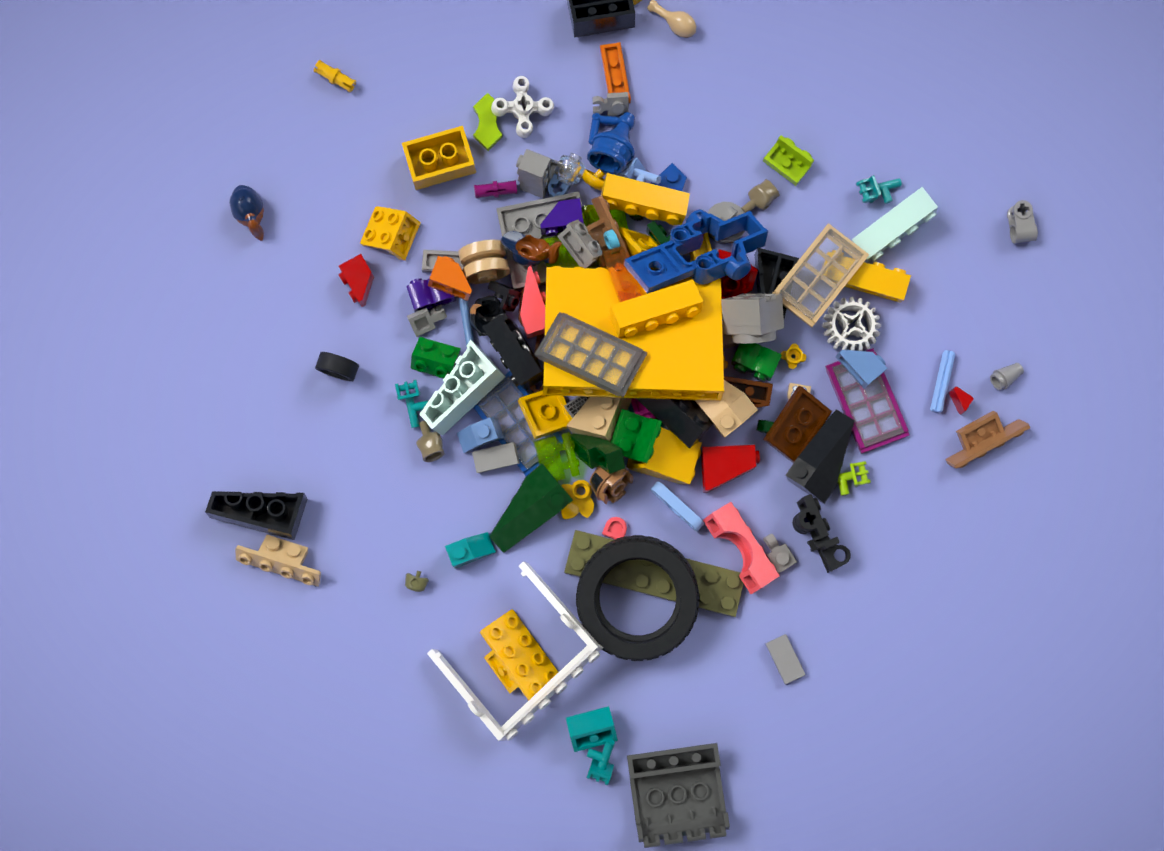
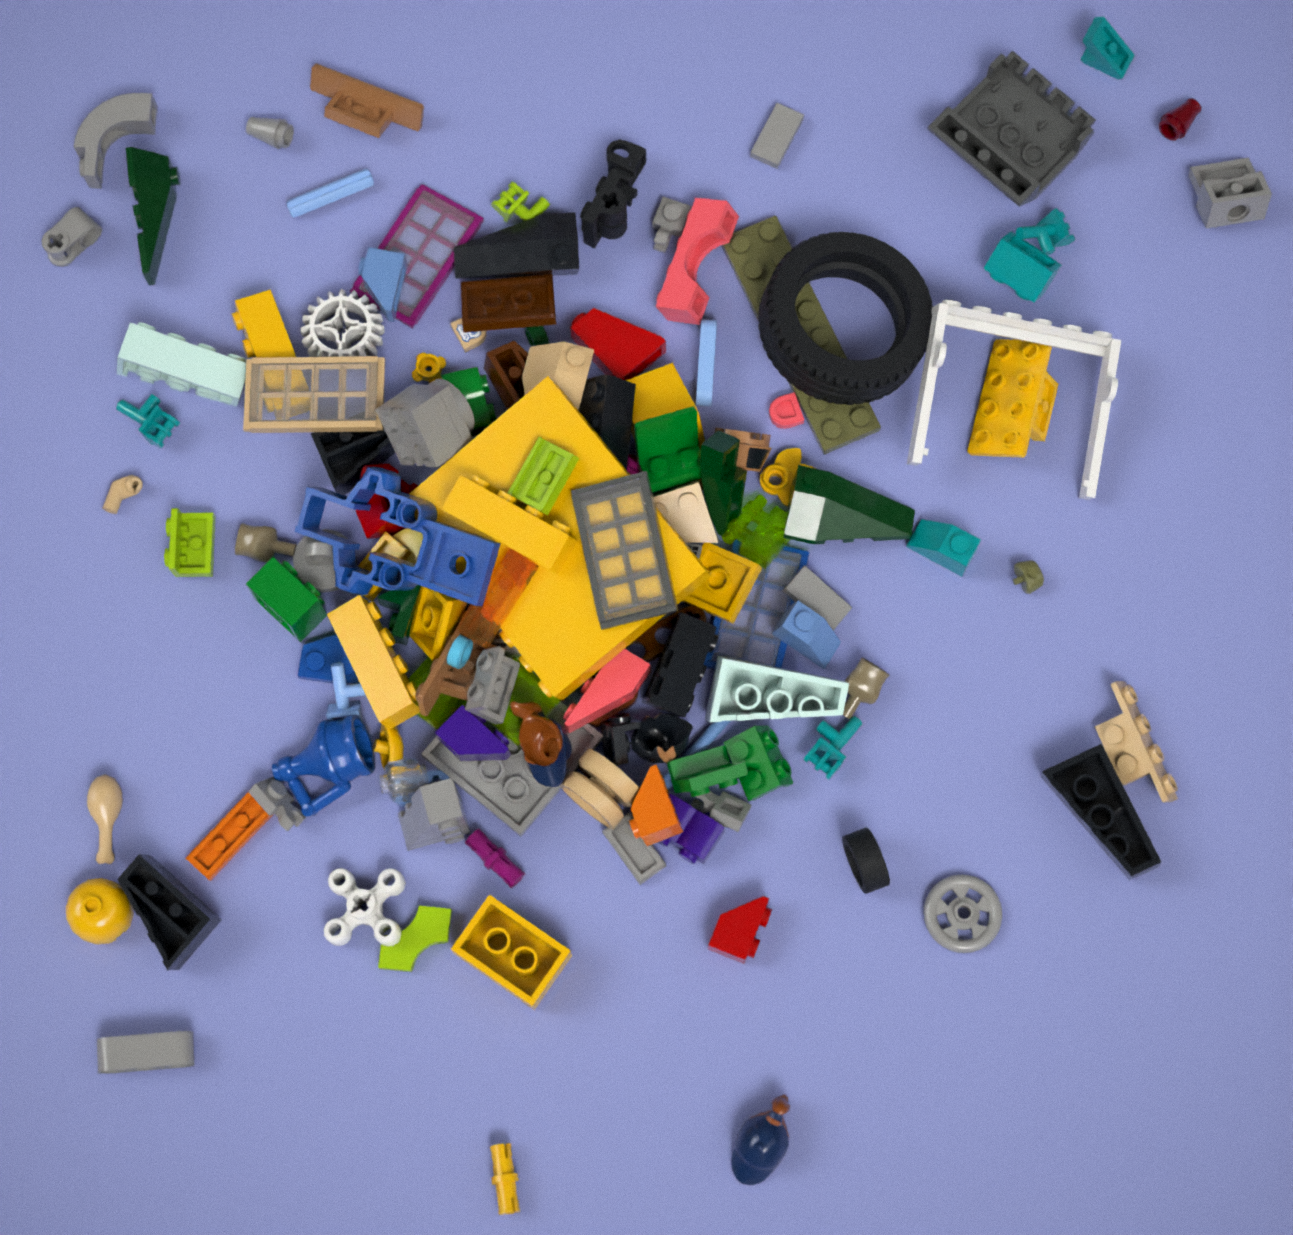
camera: 125 degrees left, 5 degrees down
(267, 381) = (949, 936): none -> light grey plate
(391, 231) = (651, 942): yellow bracket -> none
(450, 323) = (704, 769): none -> green bracket
(667, 344) = (543, 475): none -> lime plate
(716, 182) = (286, 598): none -> green brick
(849, 148) = (120, 490): none -> tan arm
(960, 399) = (339, 155): red slope -> none
(1014, 283) = (155, 190): none -> dark green wedge
(1078, 288) = (107, 123): none -> light grey arch

